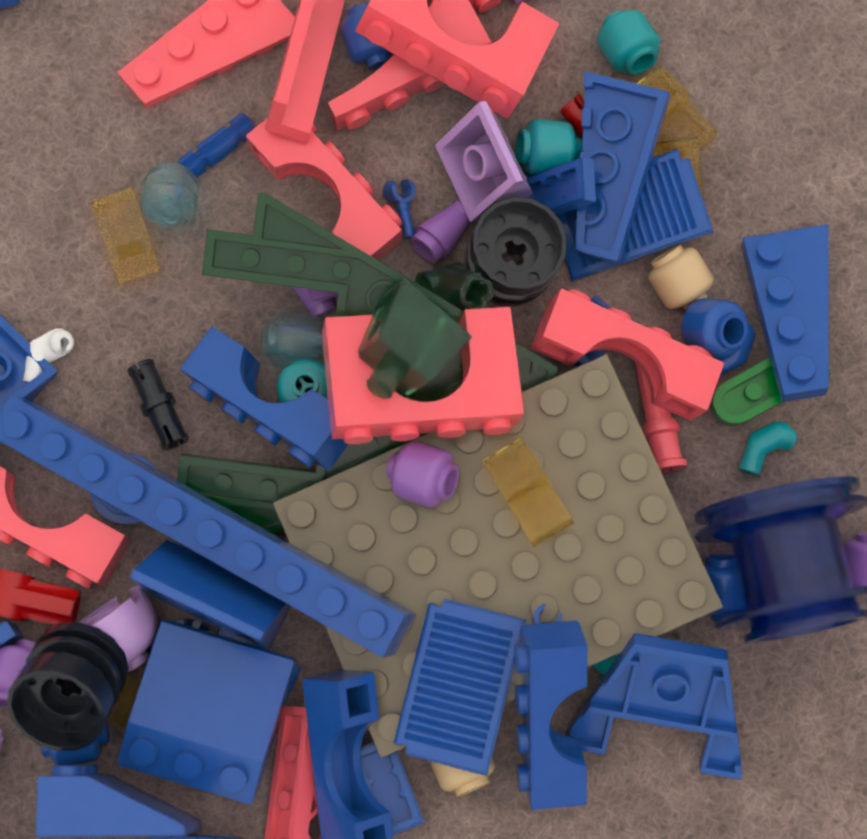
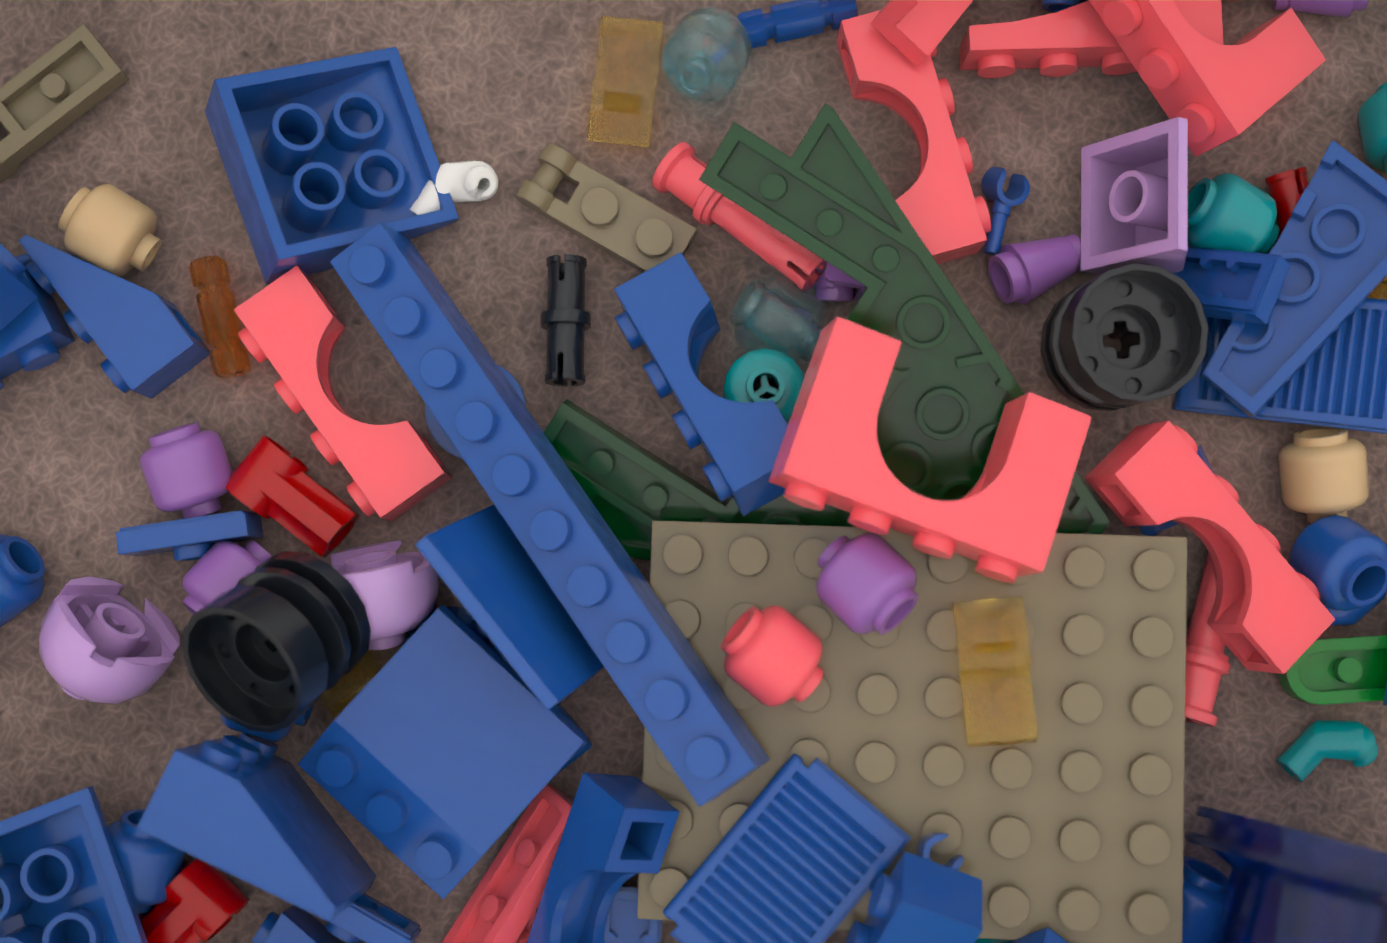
camera: 30 degrees right, 5 degrees up
(150, 324) = (605, 212): none -> dark tan plate
(188, 278) = (680, 176): none -> coral pin
(386, 546) = (773, 655): none -> coral head
(408, 341) = (934, 402): clear green torso -> none
(457, 285) = (1028, 350): piece -> none

